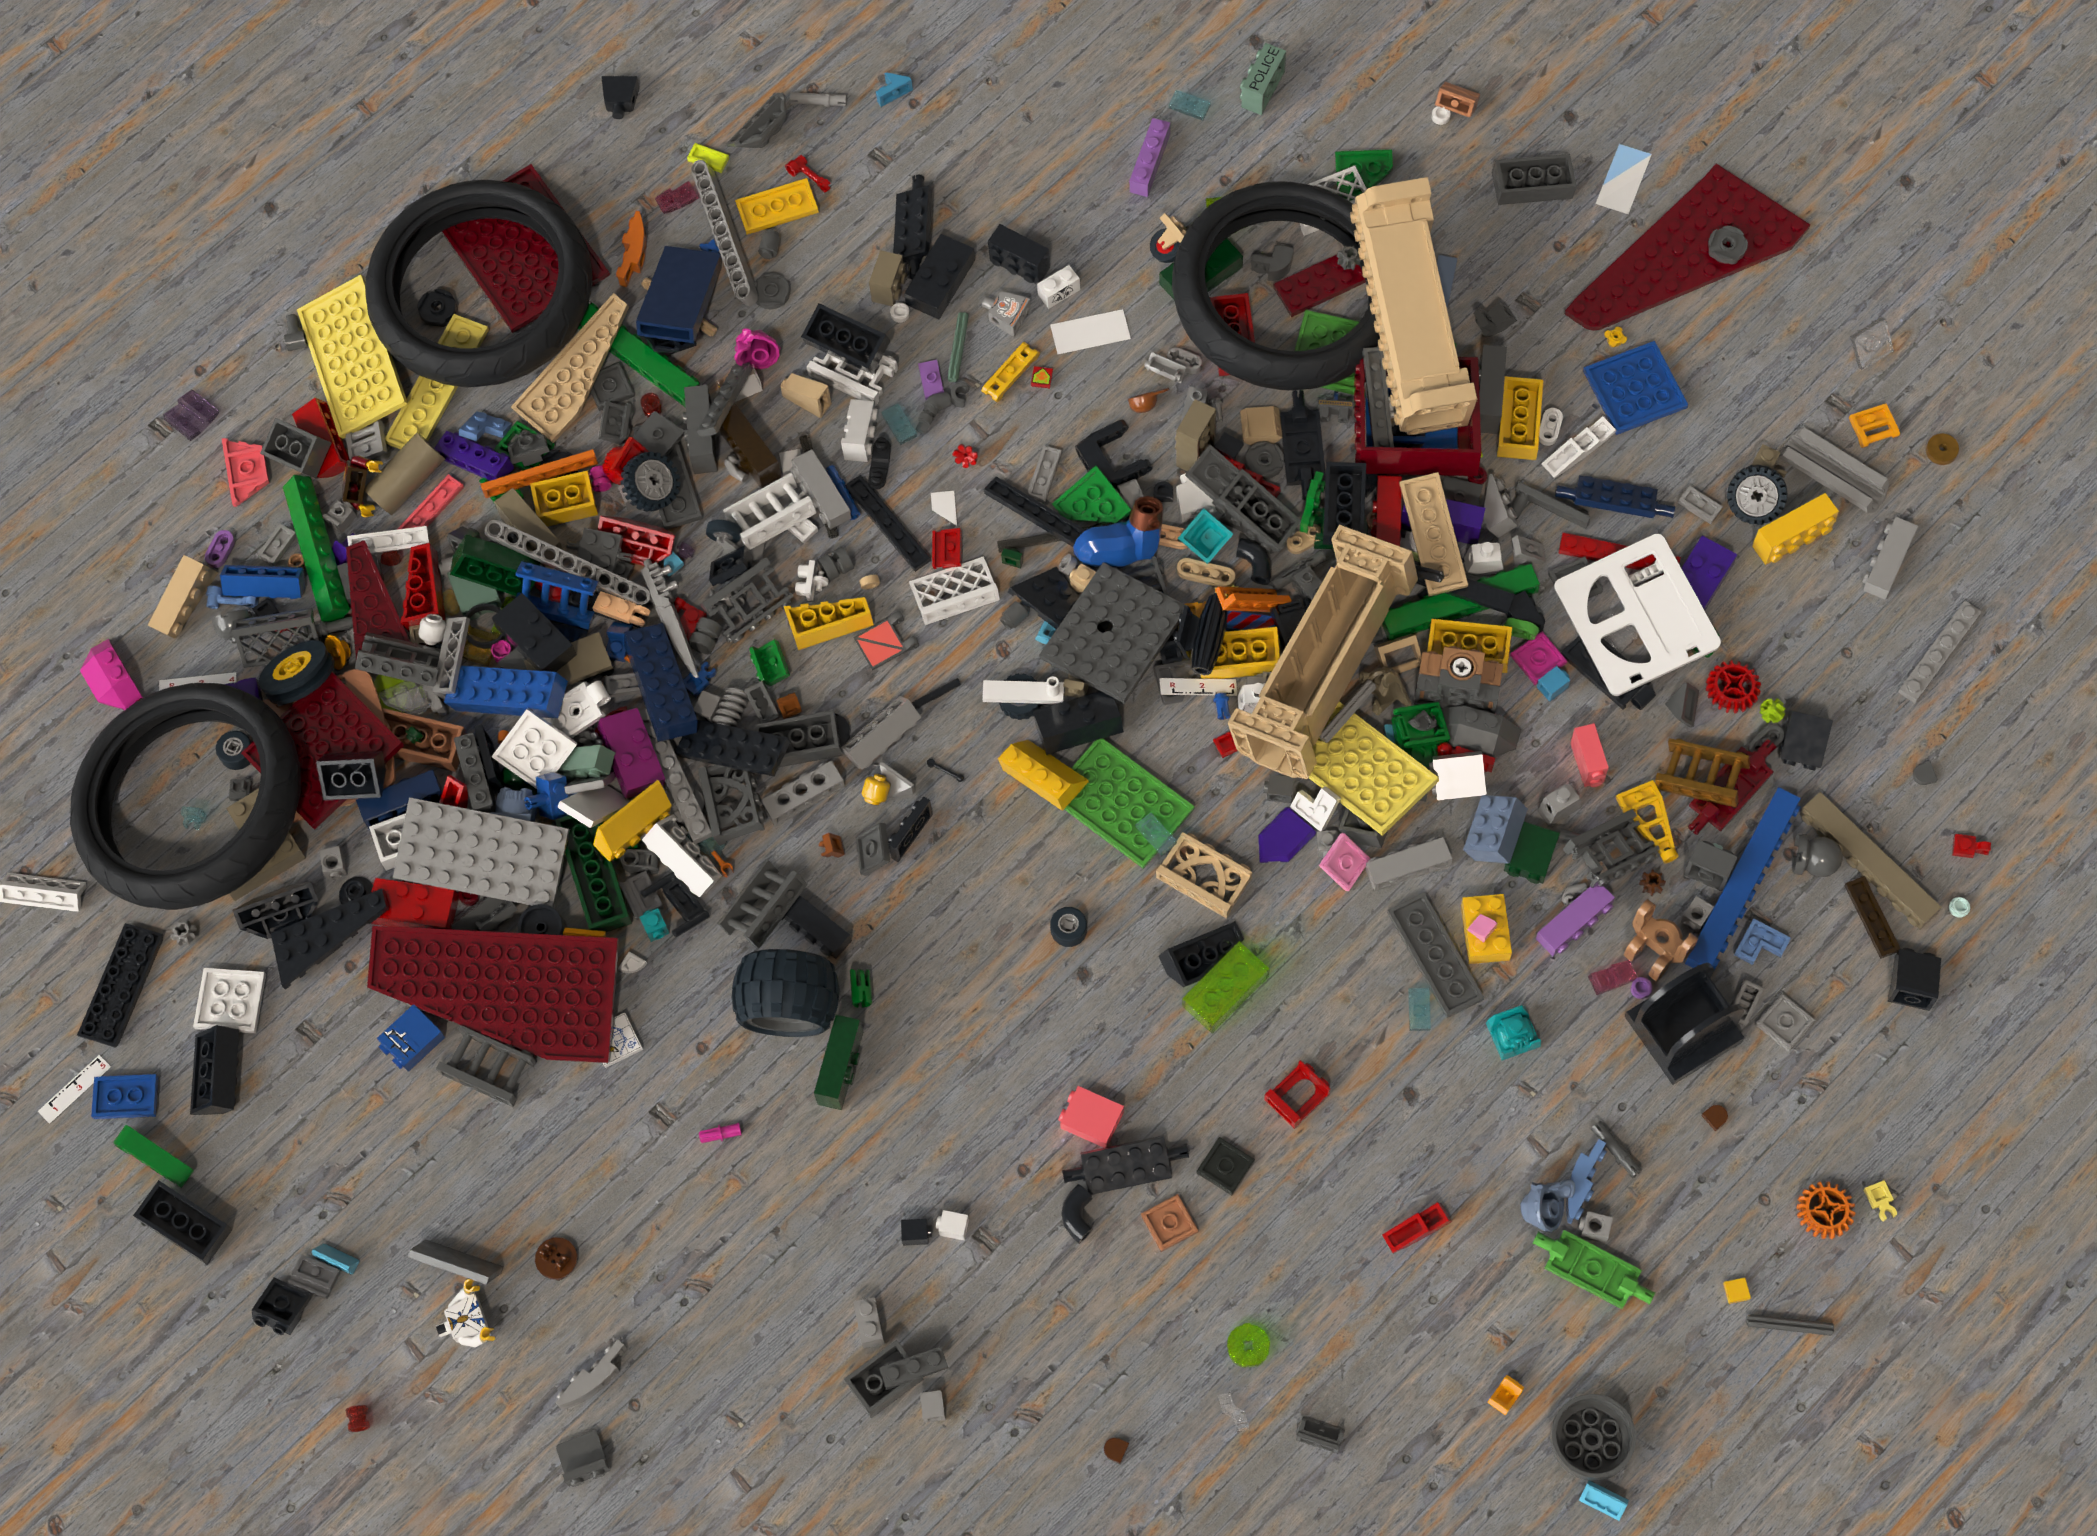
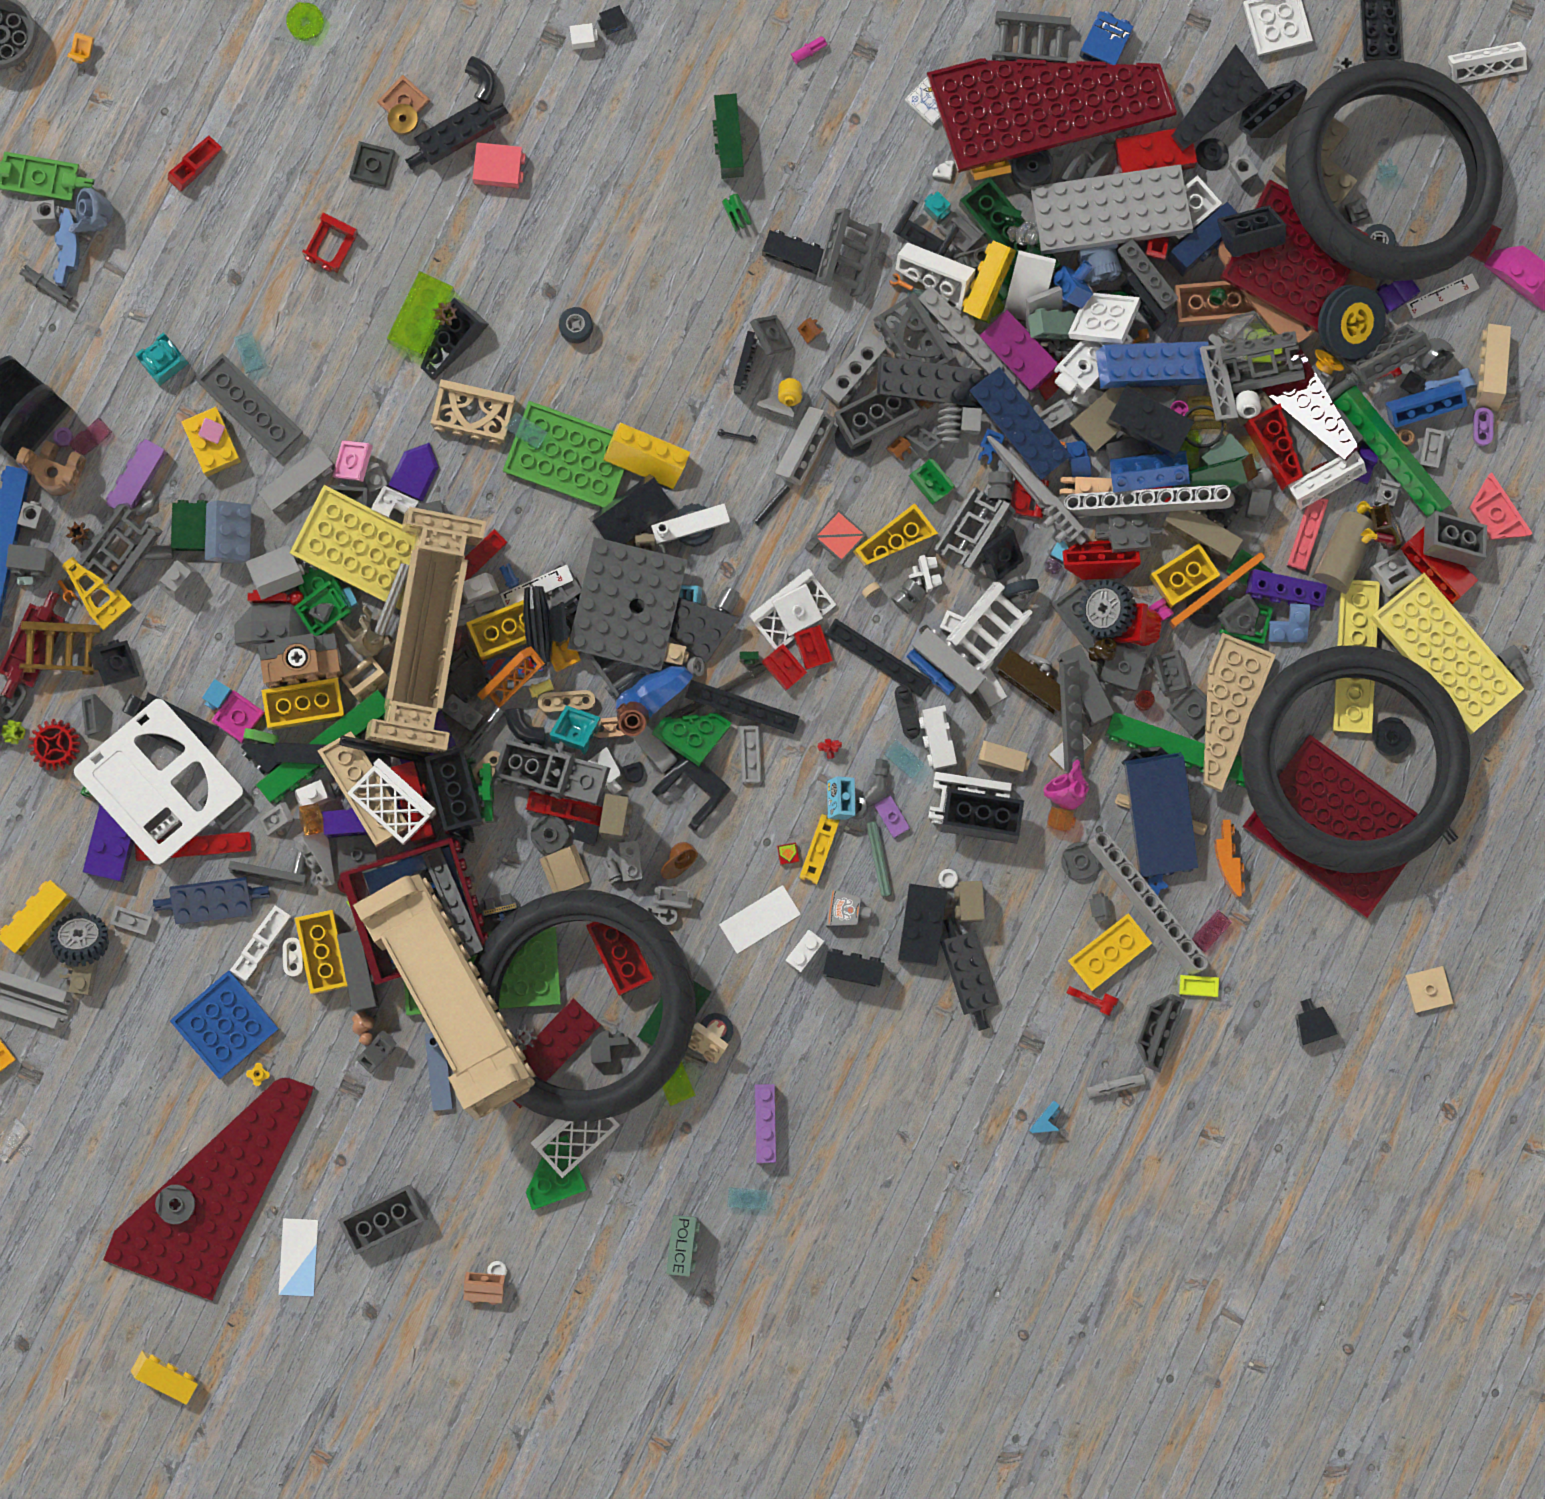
camera: 155 degrees right, 15 degrees up
(504, 95) = (1428, 989): none -> tan plate
(576, 853) = (1024, 234): none -> clear animal
(583, 877) = (1011, 215): none -> dark green plate
(671, 449) = (1103, 649): none -> dark brown animal
(775, 326) = (1060, 819): none -> clear orange brick
(785, 993) = (792, 167): black wheel -> none
(944, 505) = (832, 693): white sticker -> none
(948, 582) = (797, 609): none -> white plate
(972, 402) = (841, 798): none -> medium azure brick
(981, 537) = (784, 667): none -> red plate
(1173, 1189) = (407, 126): none -> pearl gold piece
(1200, 968) = (439, 315): none -> reddish brown gear
(1301, 444) = (517, 856): black plate -> none
(1393, 516) = (405, 792): none -> white fence
(1492, 536) = (311, 819): none -> clear orange brick
(1501, 340) = (361, 1026): none -> nougat animal
(1589, 755) = (164, 629): coral brick -> none
(1650, 741) = (114, 662): none -> black plate
(1680, 829) = (68, 594): none -> orange hand
(1781, 112) = (164, 1377): none -> yellow wedge

